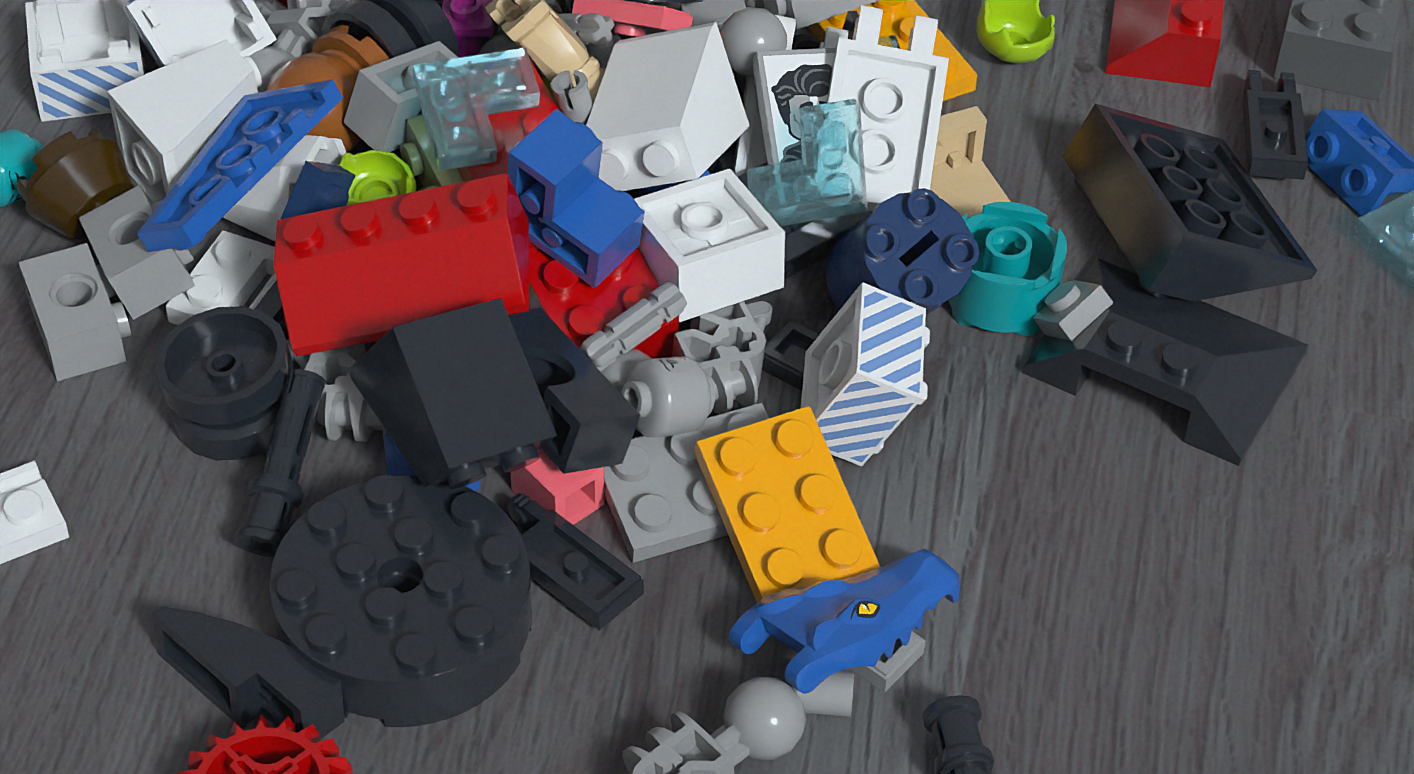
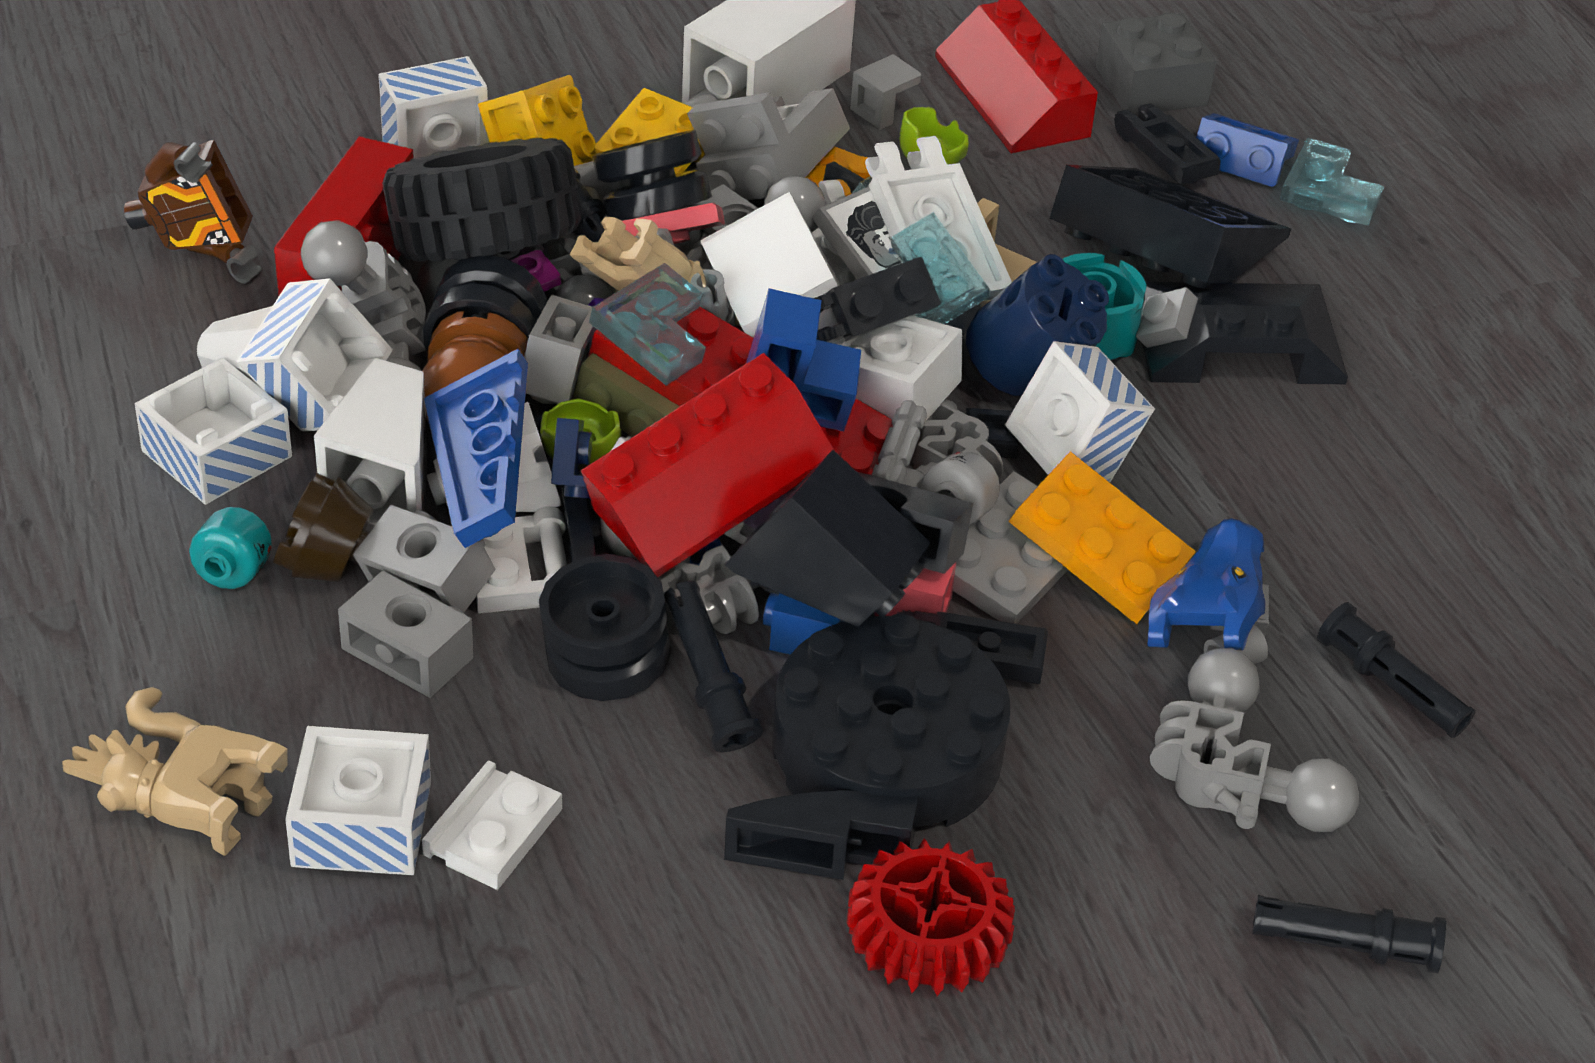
camera: 35 degrees left, 5 degrees down
(707, 167) = (878, 300): none -> black hinge

